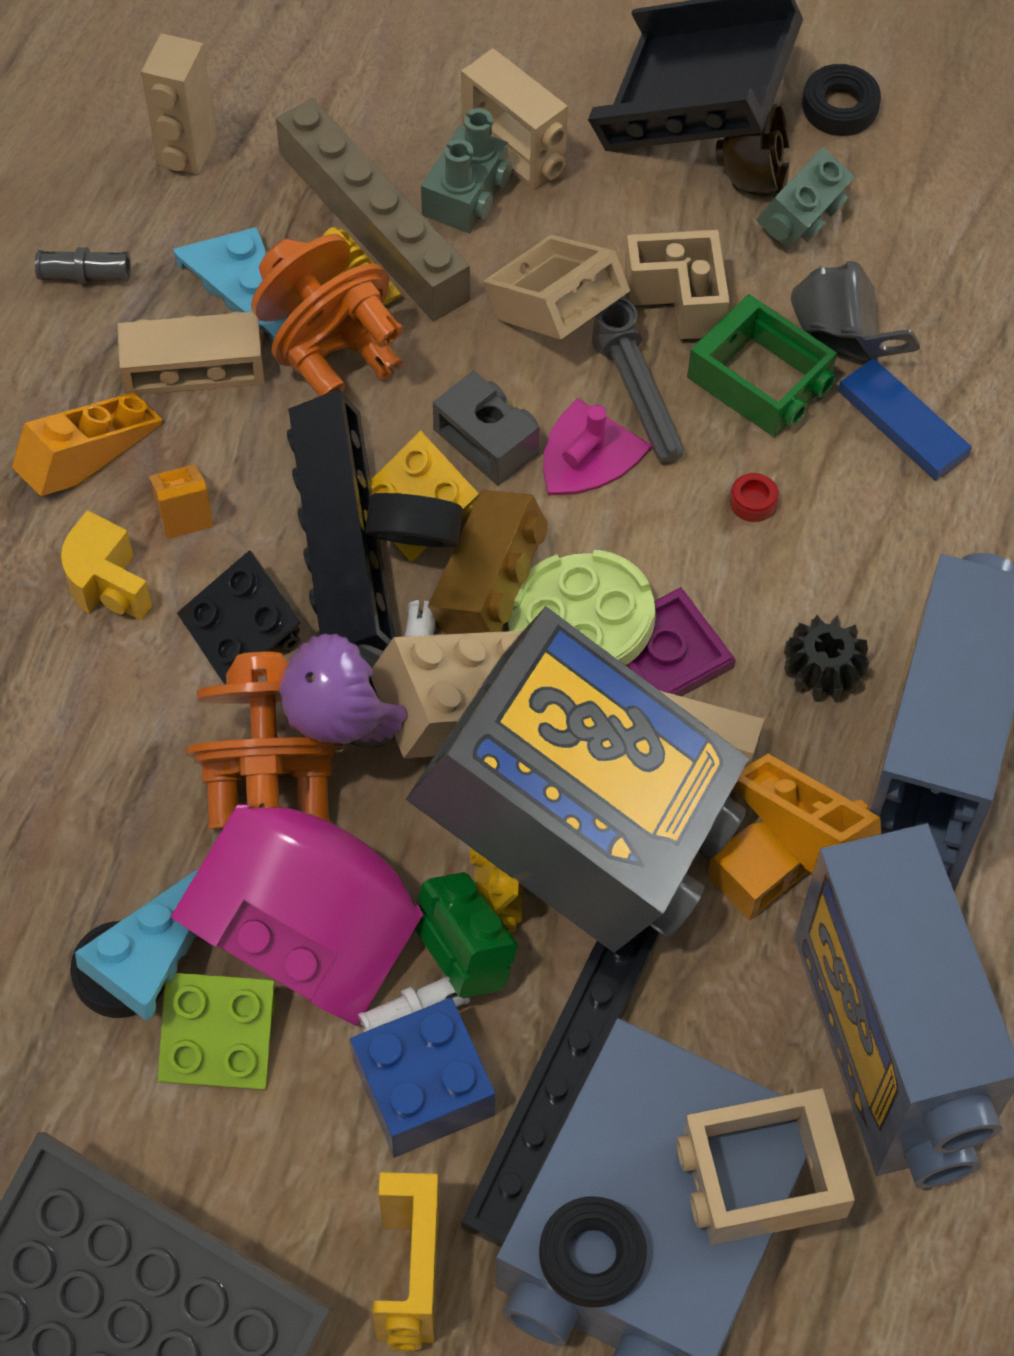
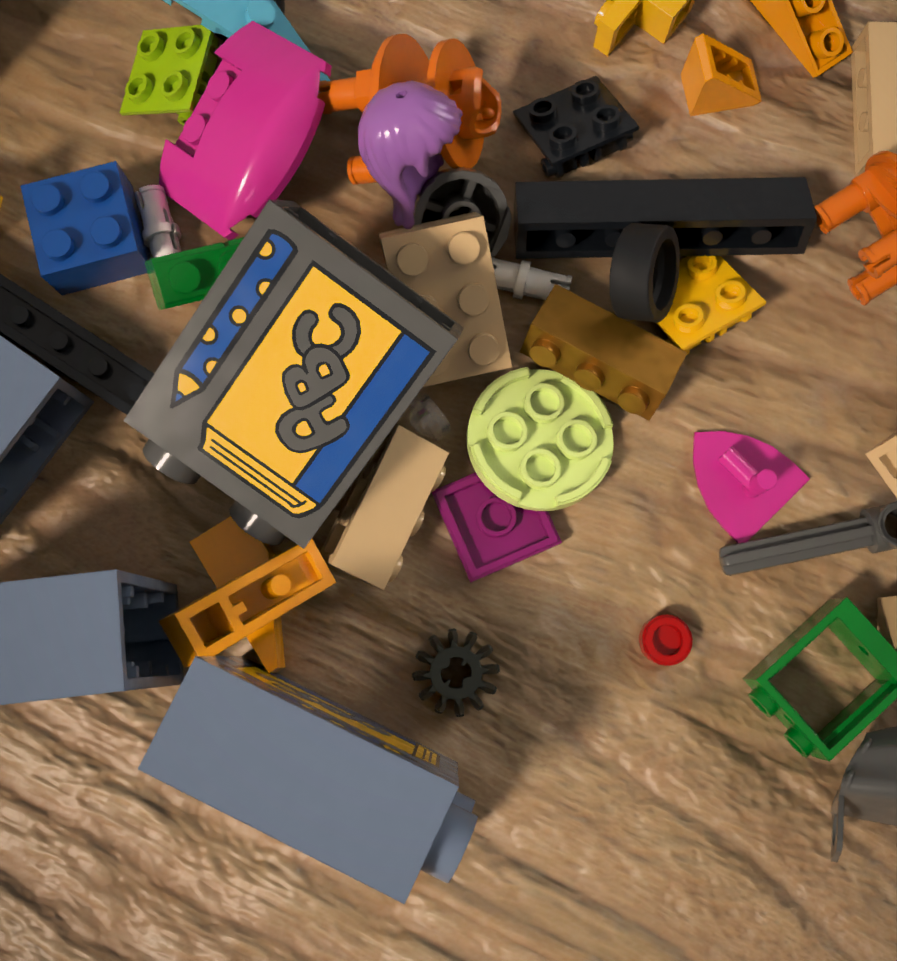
camera: 100 degrees right, 20 degrees up
(495, 448) = (791, 354): dark grey brick -> none
(904, 419) = (750, 826): blue tile -> none

